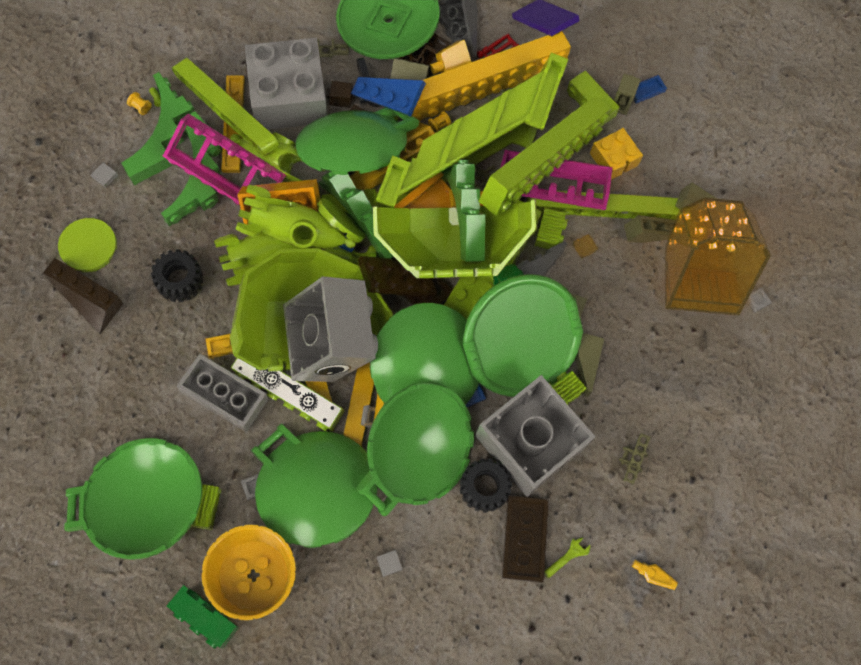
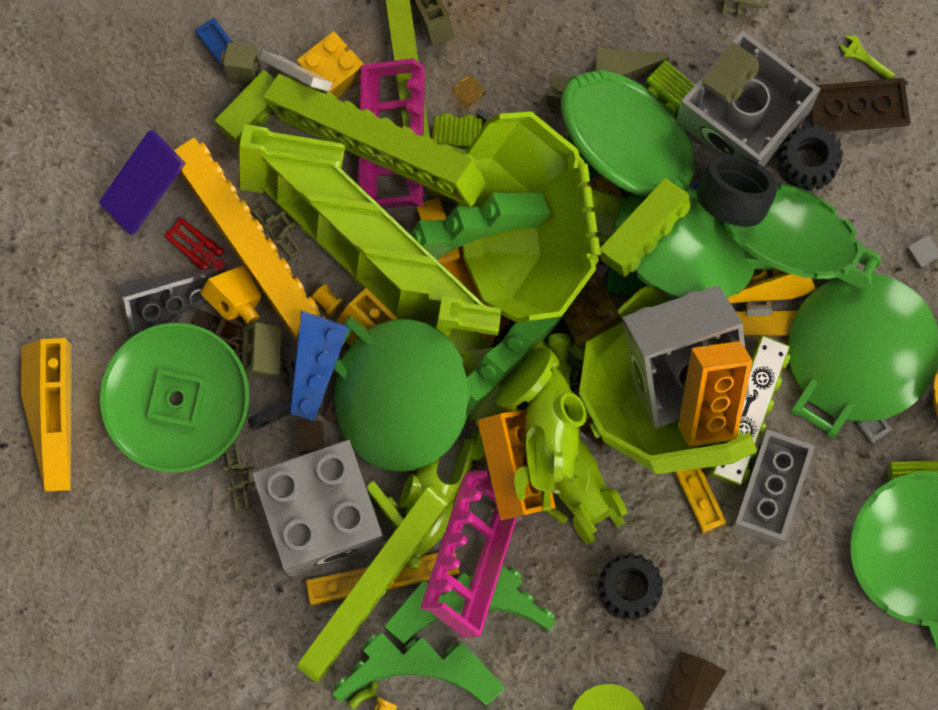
camera: 90 degrees left, 5 degrees up
(281, 123) = (386, 505): none -> lime plate
(290, 337) = (714, 393): none -> light orange brick
(437, 319) = (645, 227): none -> lime brick
(475, 410) = (736, 190): none -> black tyre
(557, 416) = (731, 73): none -> olive brick
(613, 121) = (296, 71): none -> white tile

